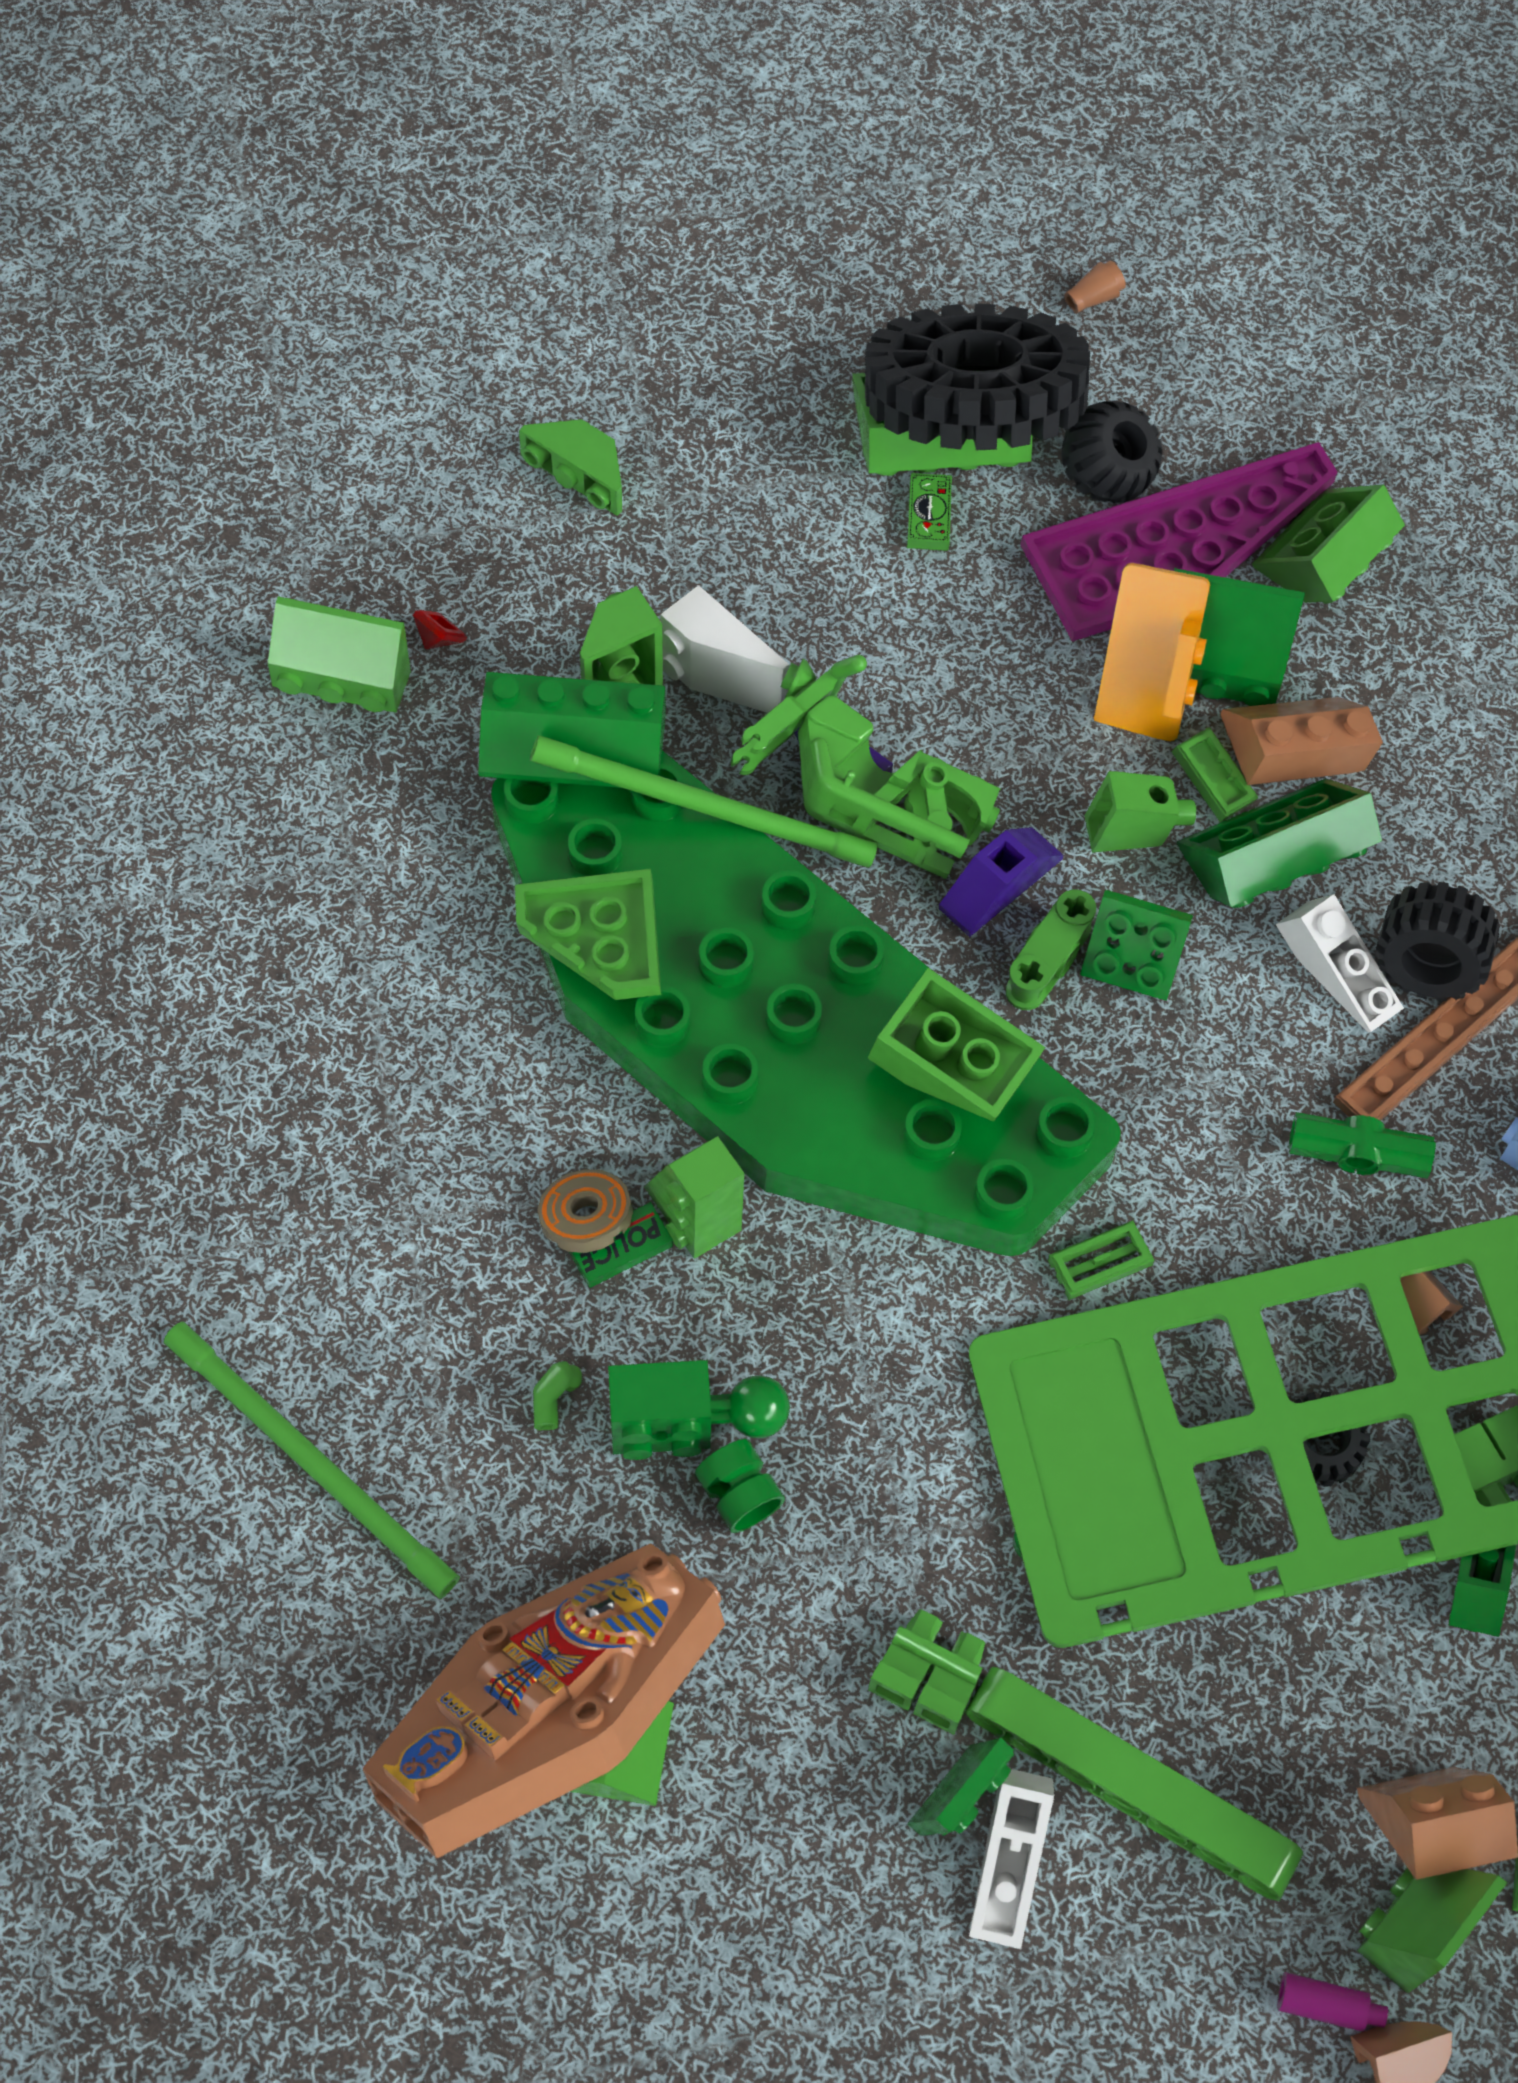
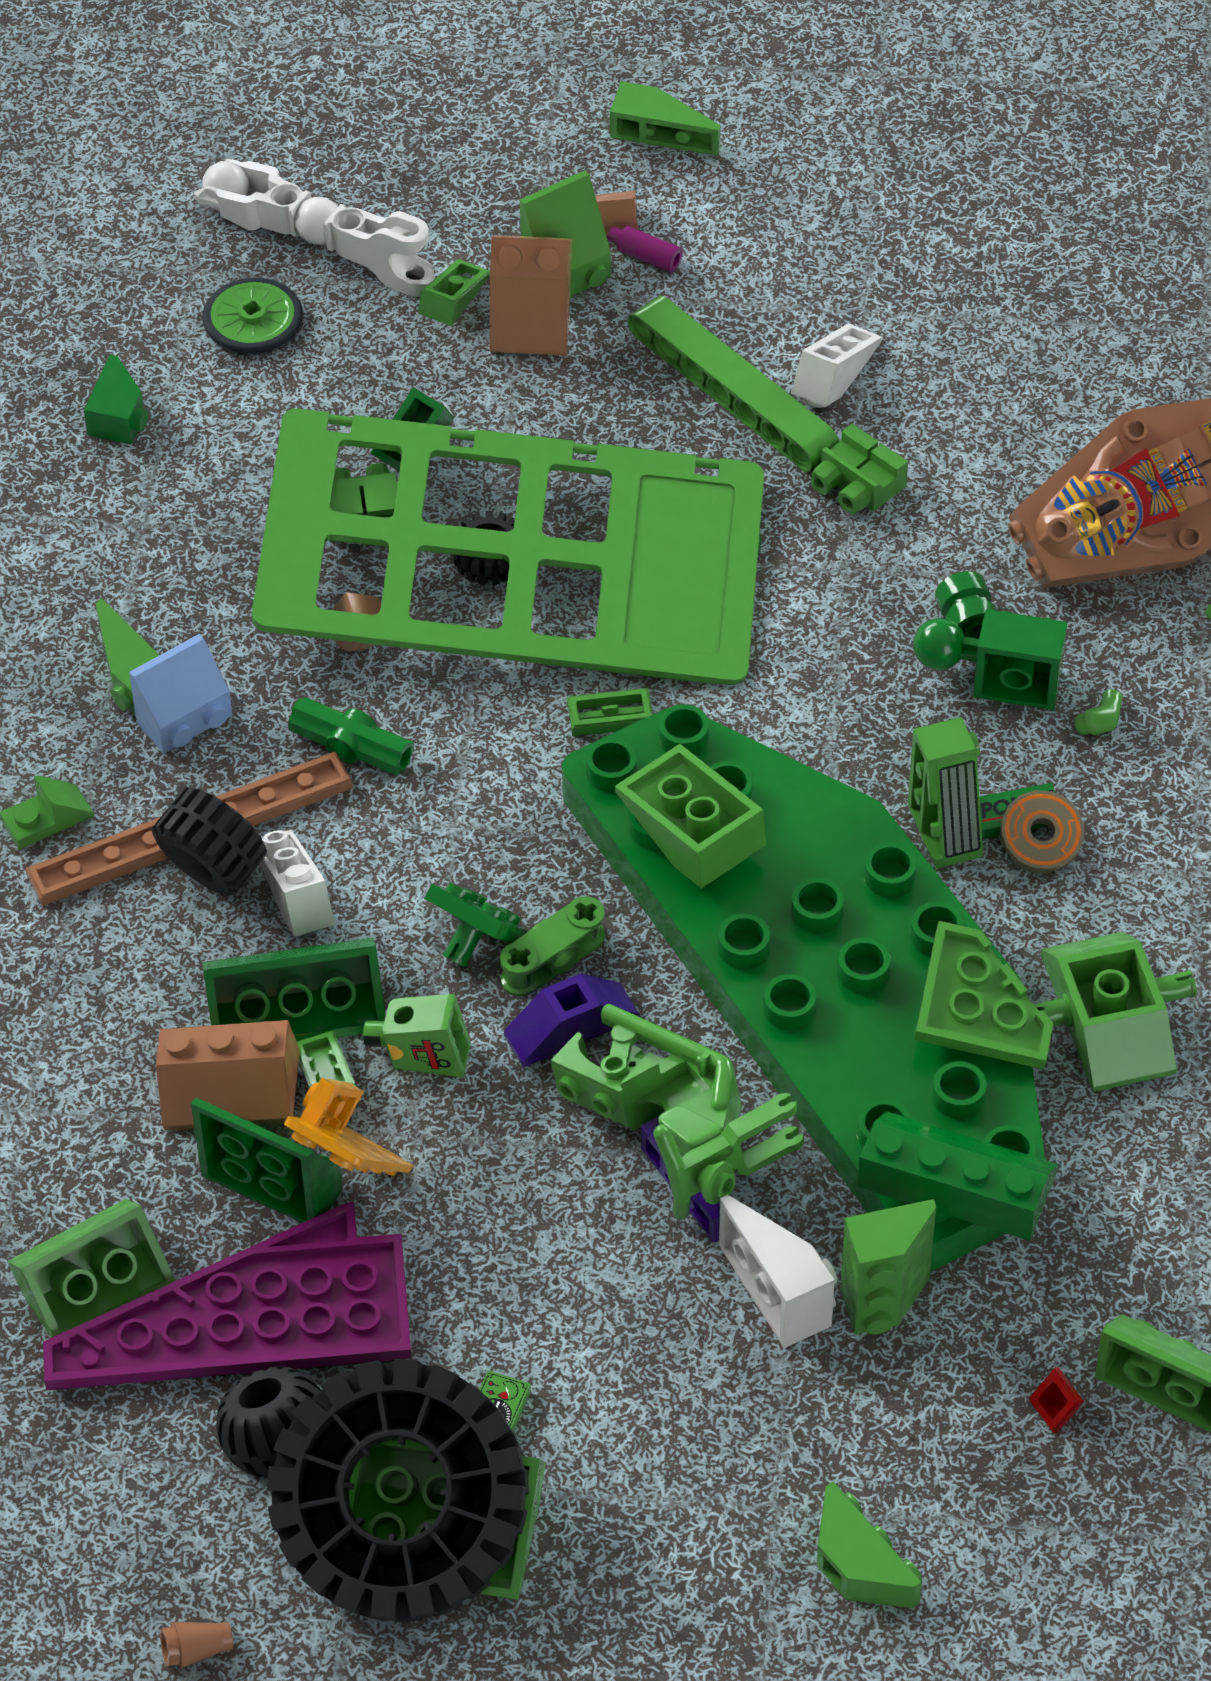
camera: 160 degrees left, 10 degrees down
(473, 1023) = (1114, 1008): none -> bright green slope
(571, 759) = (970, 1115): bright green piece -> none
(953, 1800) = (864, 386): green tile -> none

